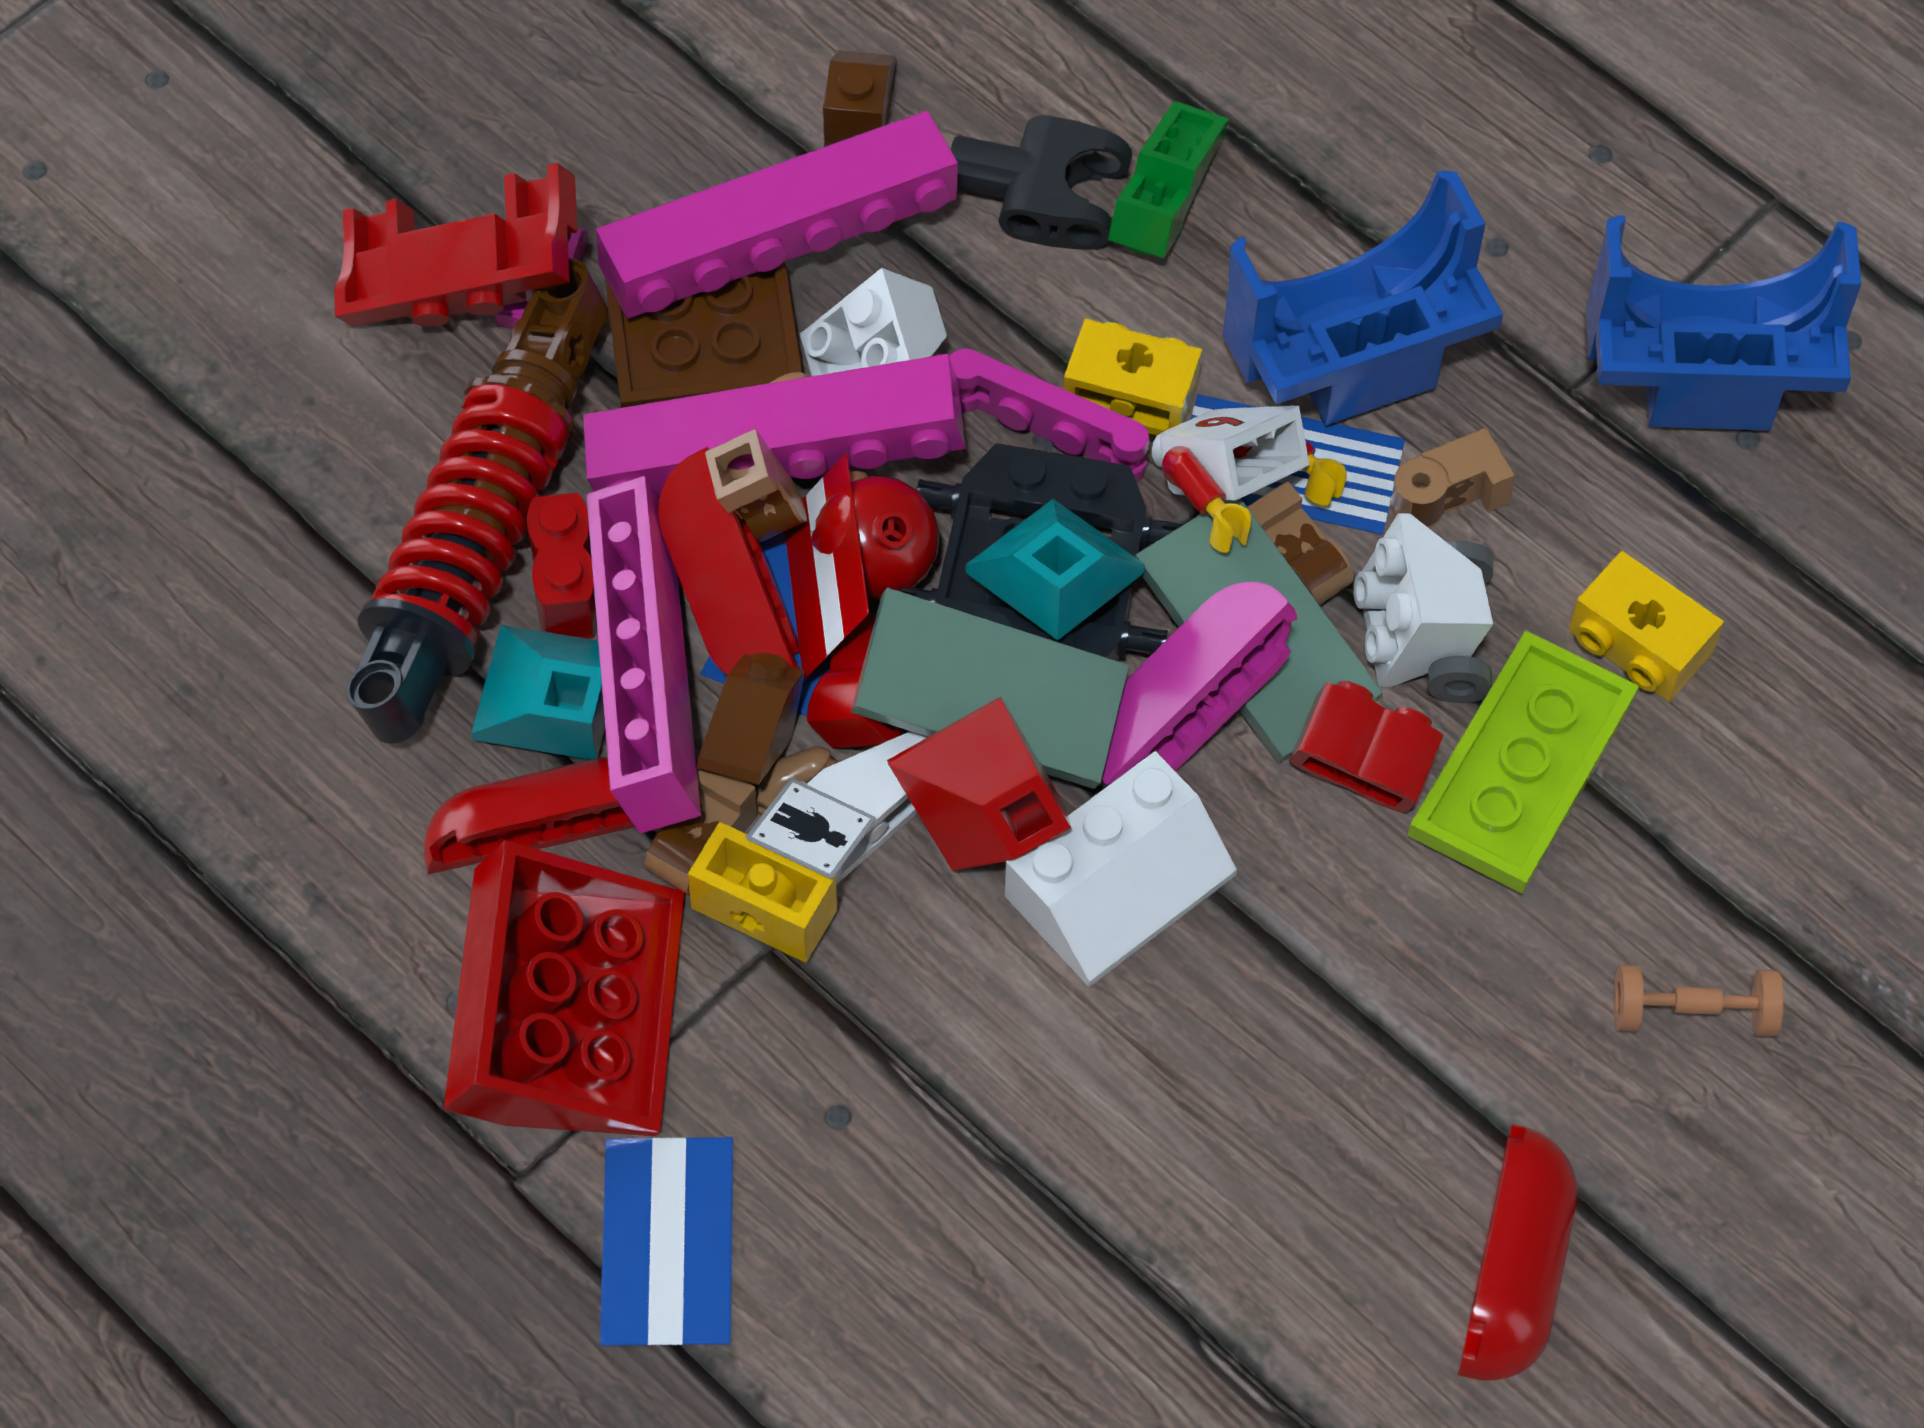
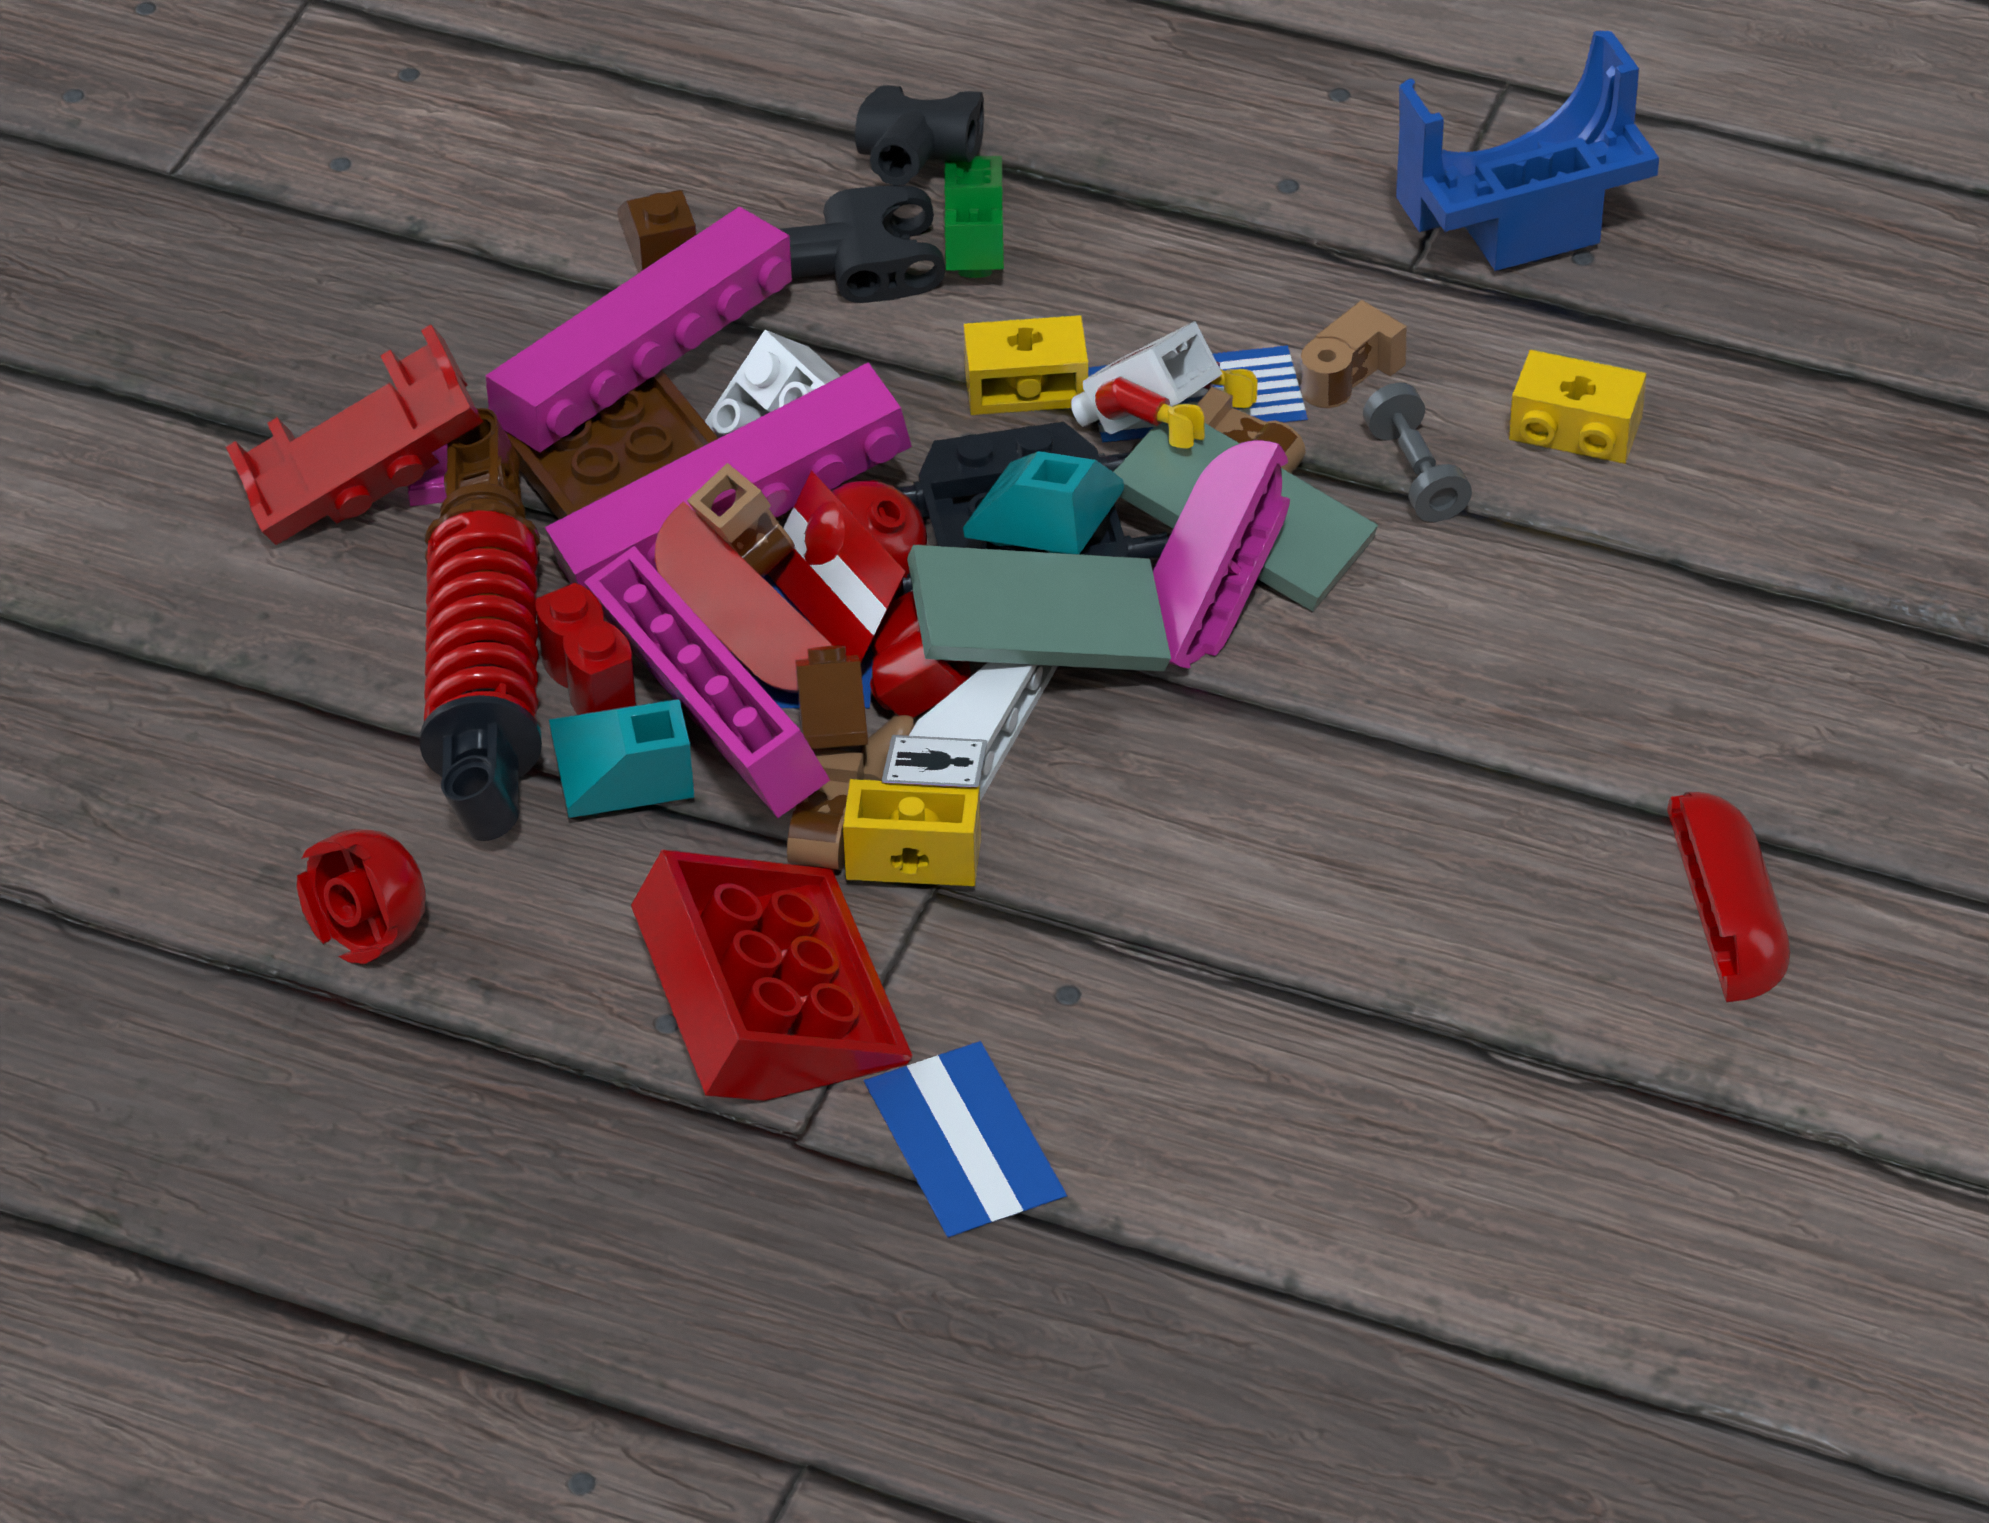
camera: 20 degrees left, 15 degrees down
(242, 762) = (362, 893): none -> red cylinder
(527, 810) = (705, 821): red brick -> none
(981, 789) = (1074, 683): red slope -> none
(1049, 411) = (969, 407): dark pink plate -> none
(1121, 871) = (1220, 721): white slope -> none
(1147, 66) = (908, 131): none -> black connector
(1367, 747) = (1389, 562): red brick -> none
(1371, 324) = (1229, 248): blue piece -> none
(1419, 602) = (1376, 437): white slope -> none
(1523, 761) = (1528, 537): lime plate -> none
(1765, 1002) = (1834, 641): nougat wheel -> none

